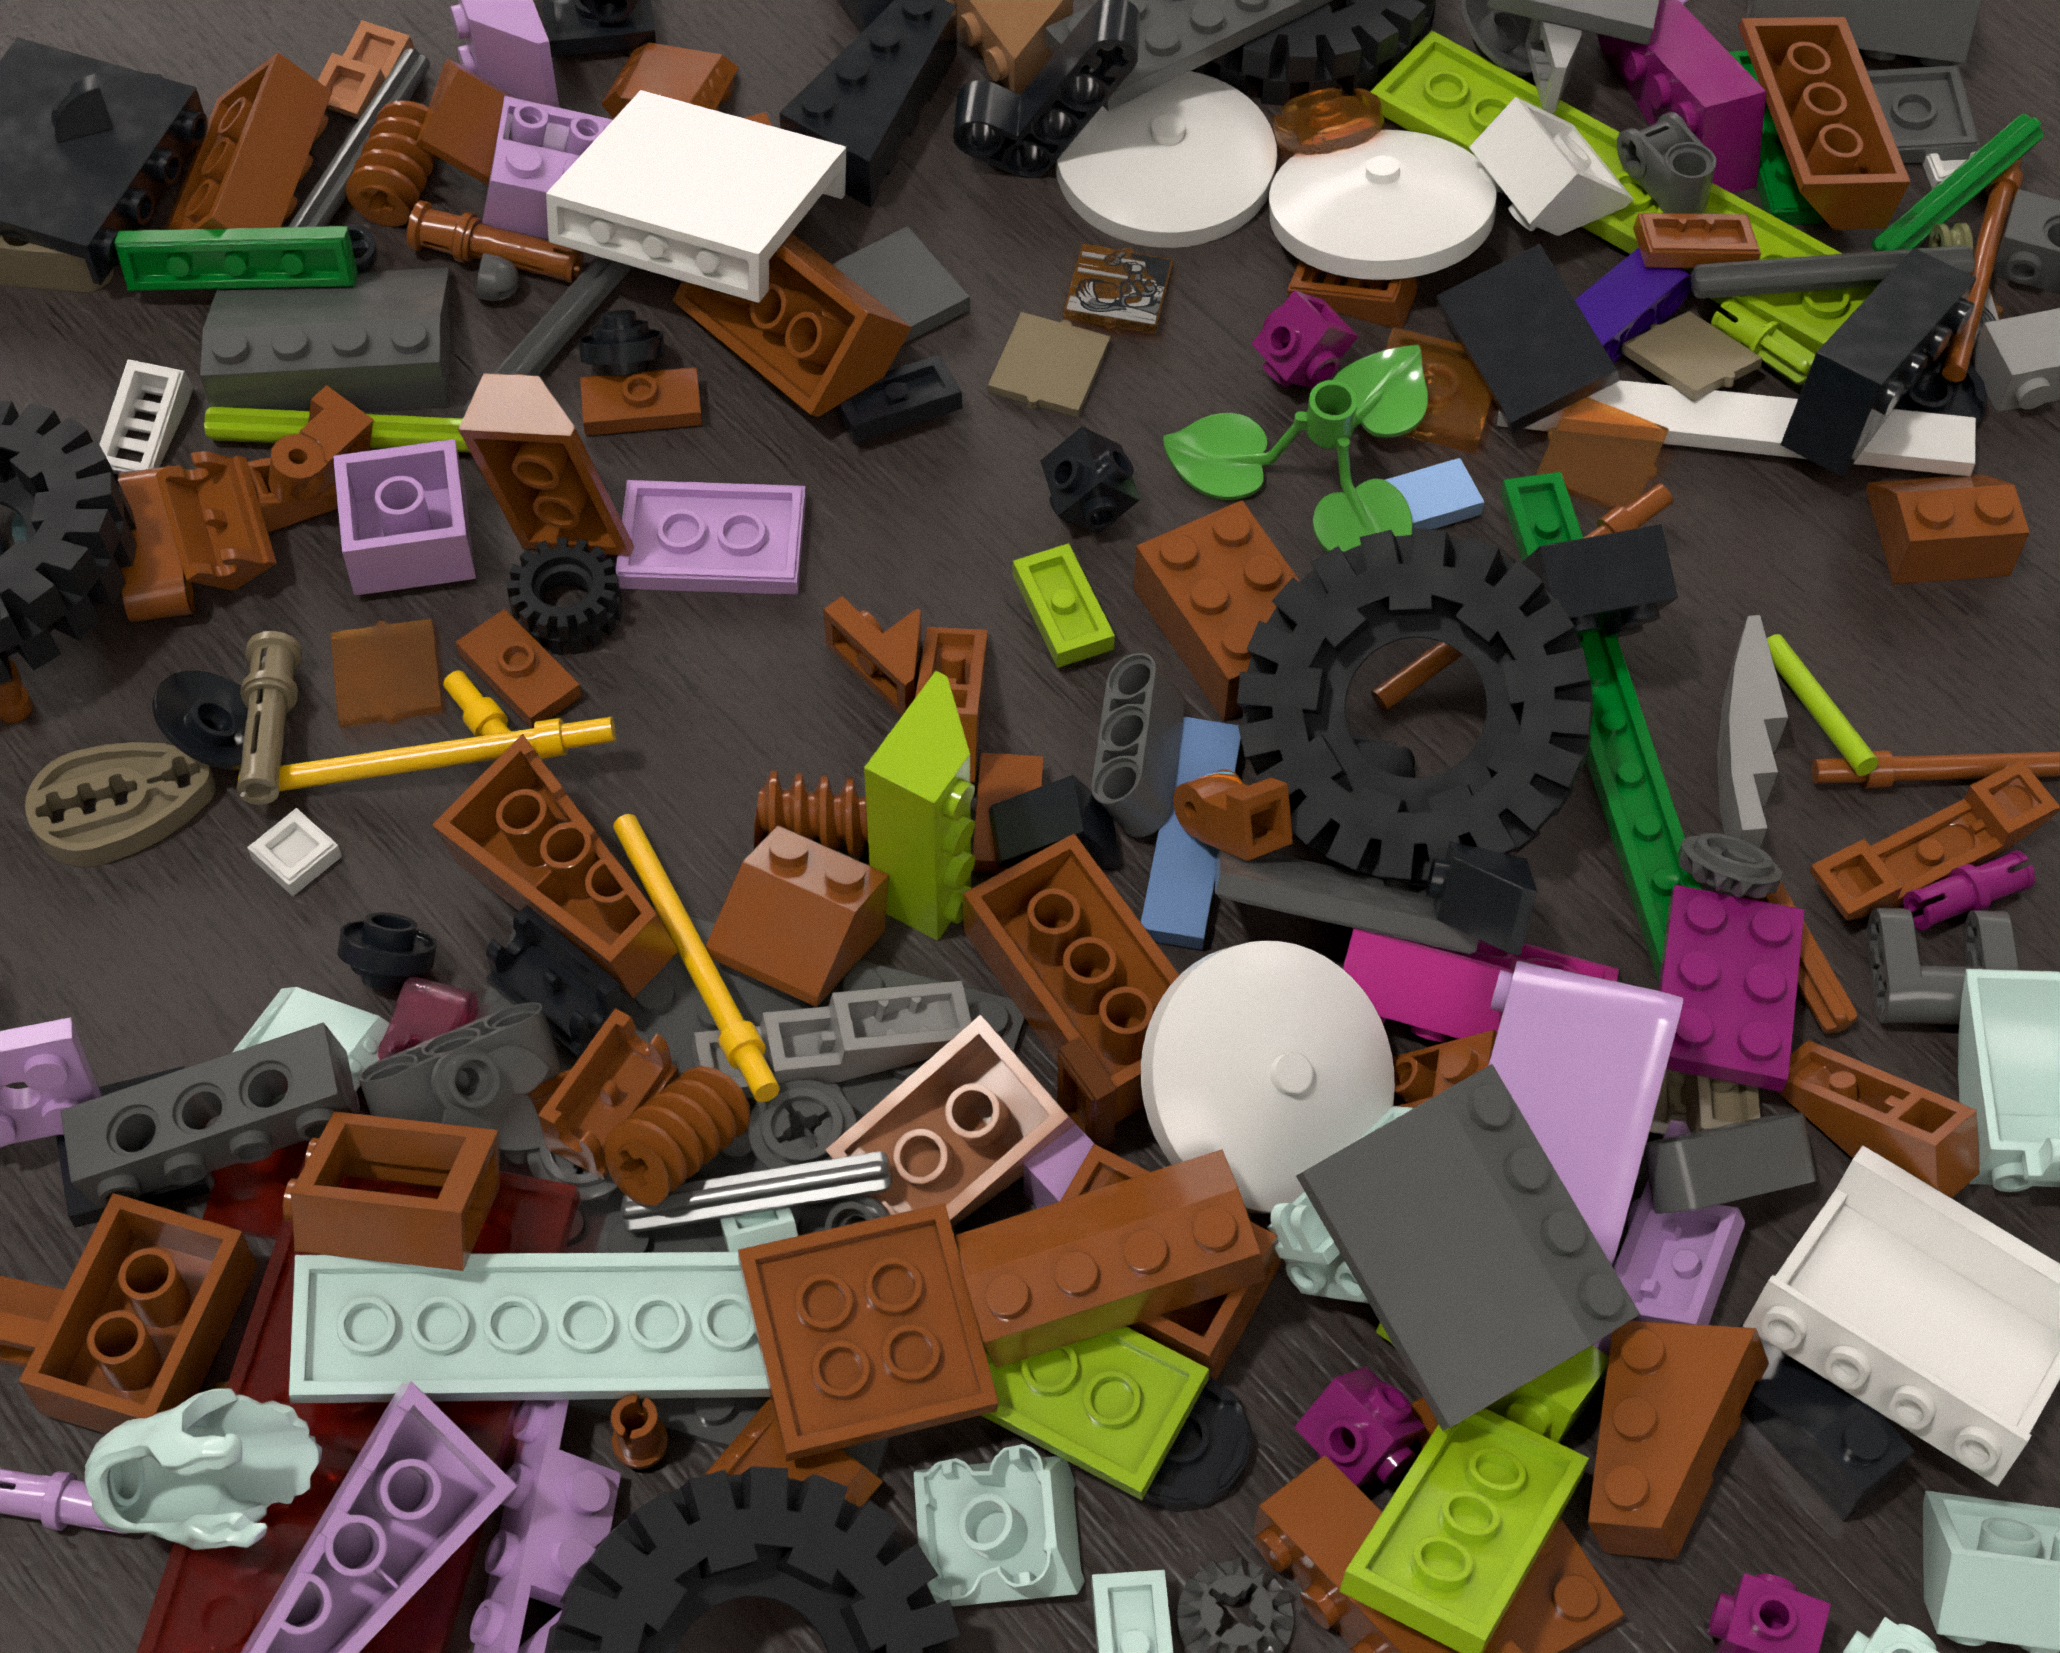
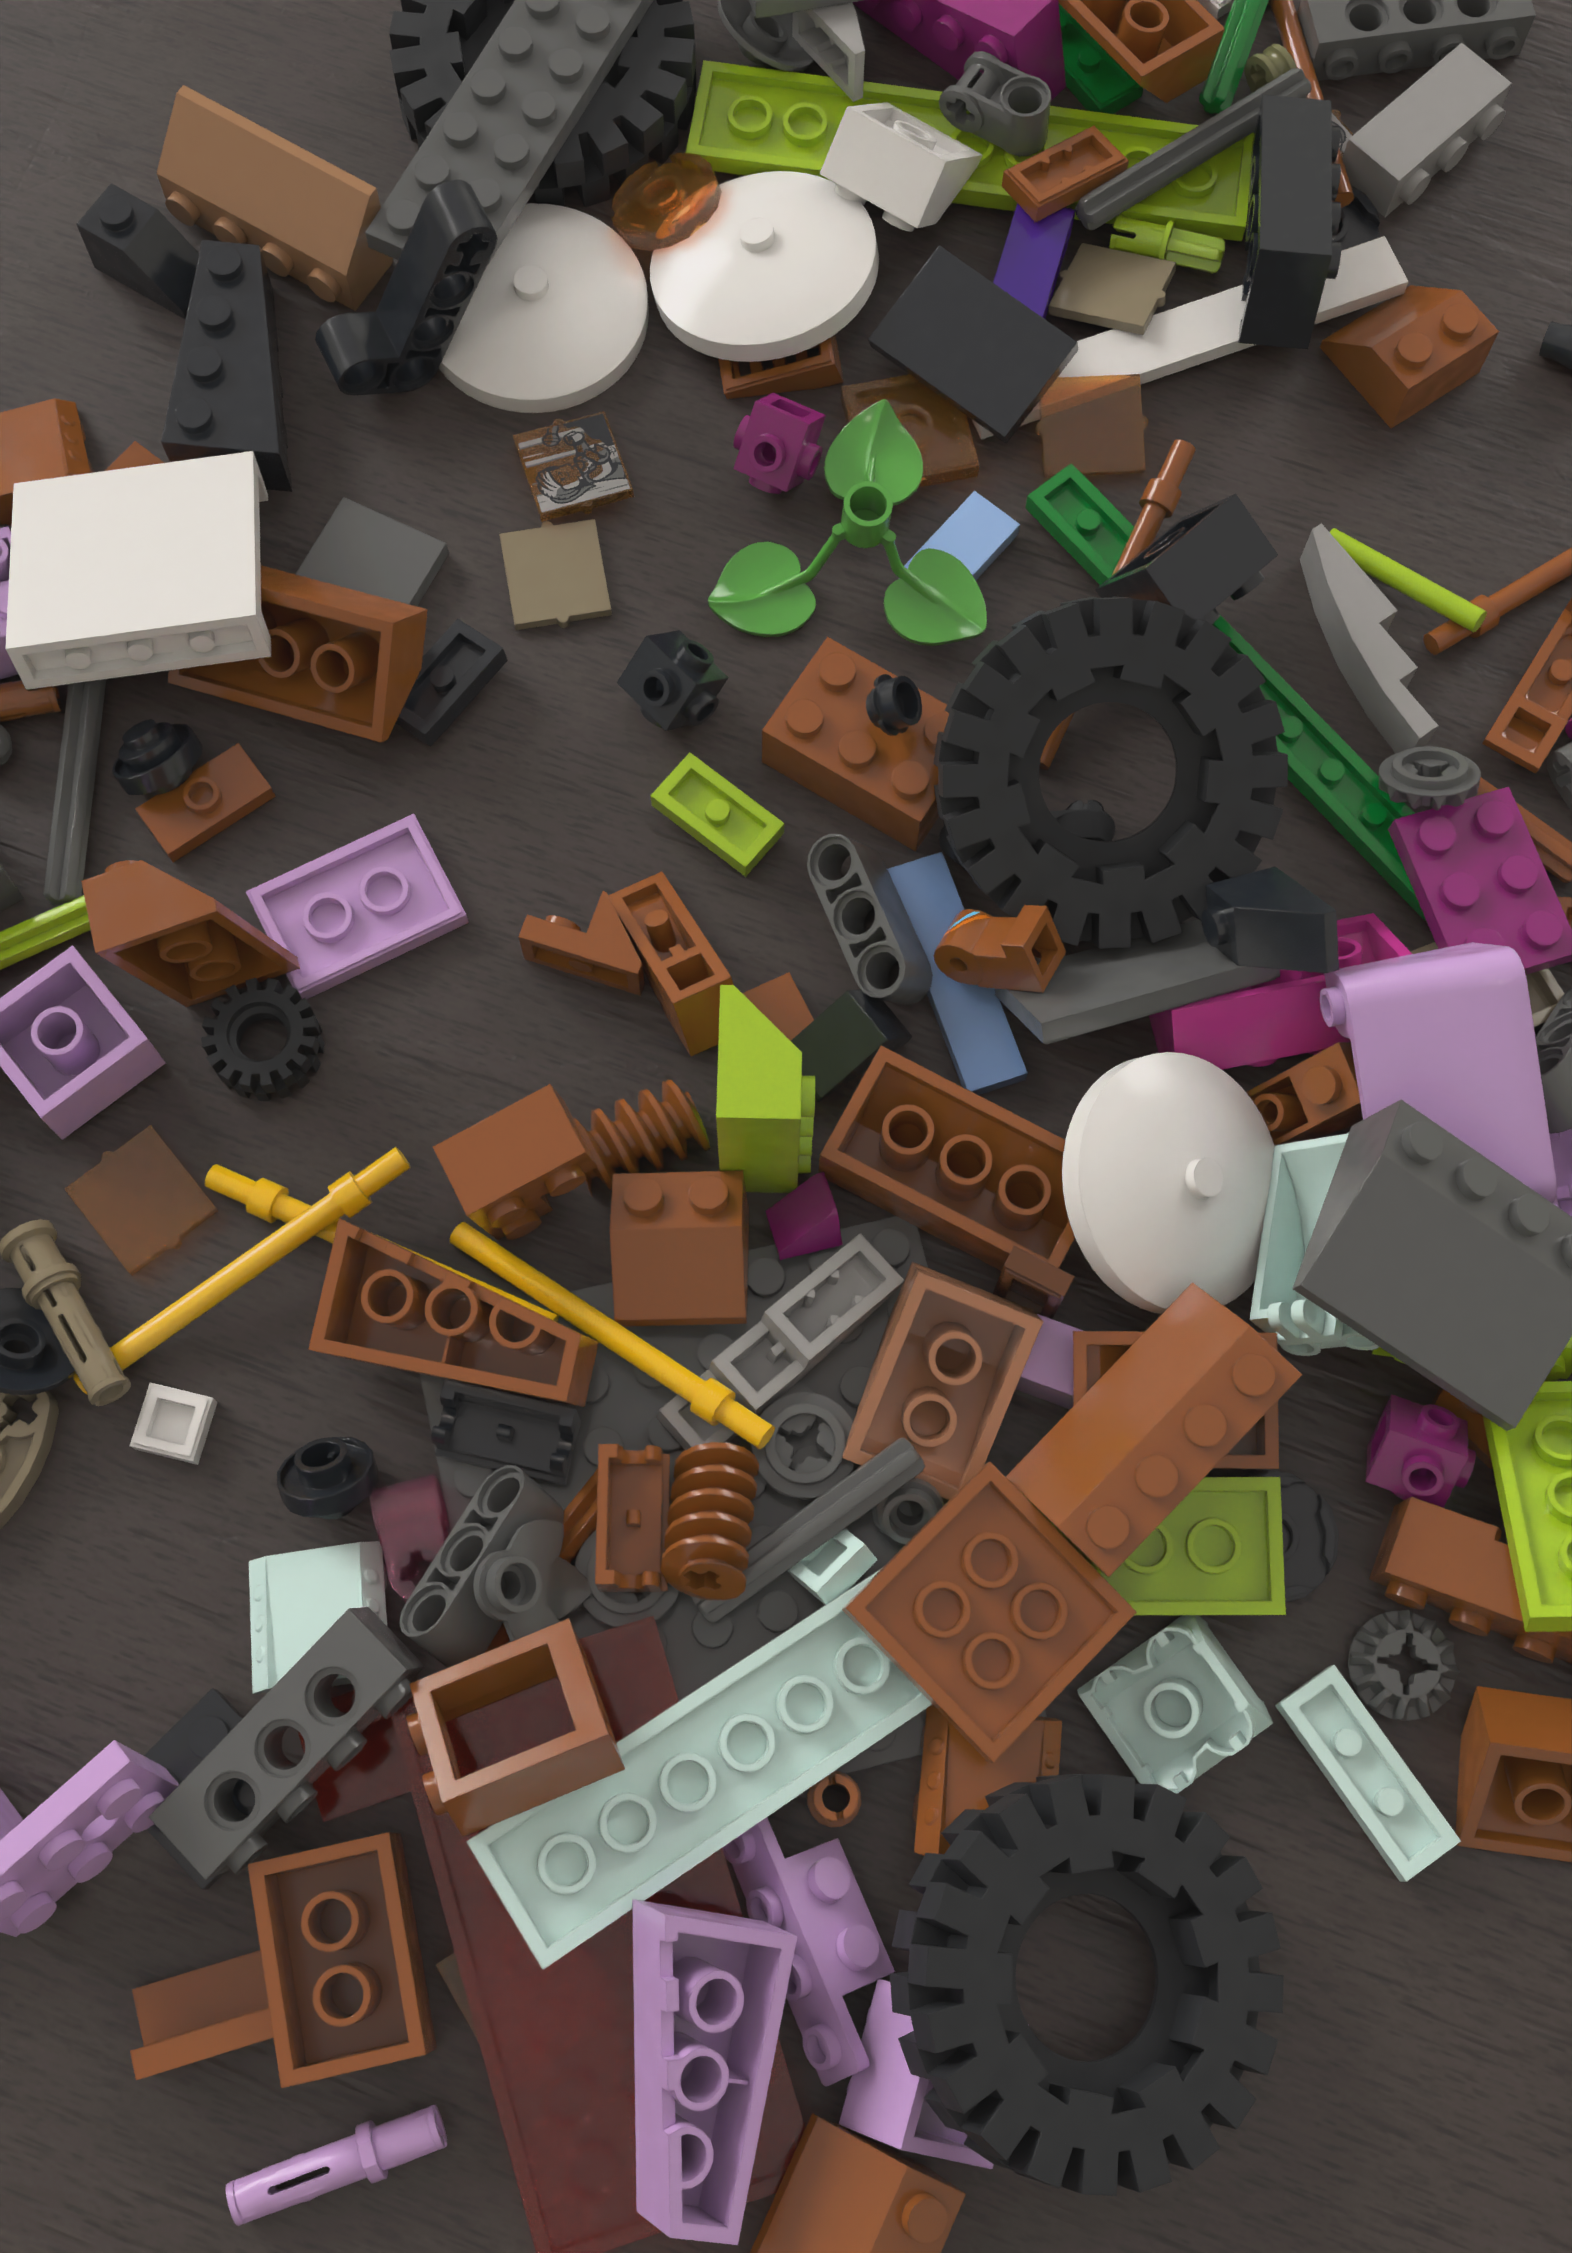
camera: 30 degrees left, 15 degrees up
(202, 1470) = (503, 2079): light aqua hair -> none
(518, 669) = (264, 1133): dark orange plate -> none
(695, 770) = (514, 1160): none -> dark orange brick
(926, 956) = (805, 1219): none -> magenta slope
(1258, 567) = (894, 704): none -> black plate

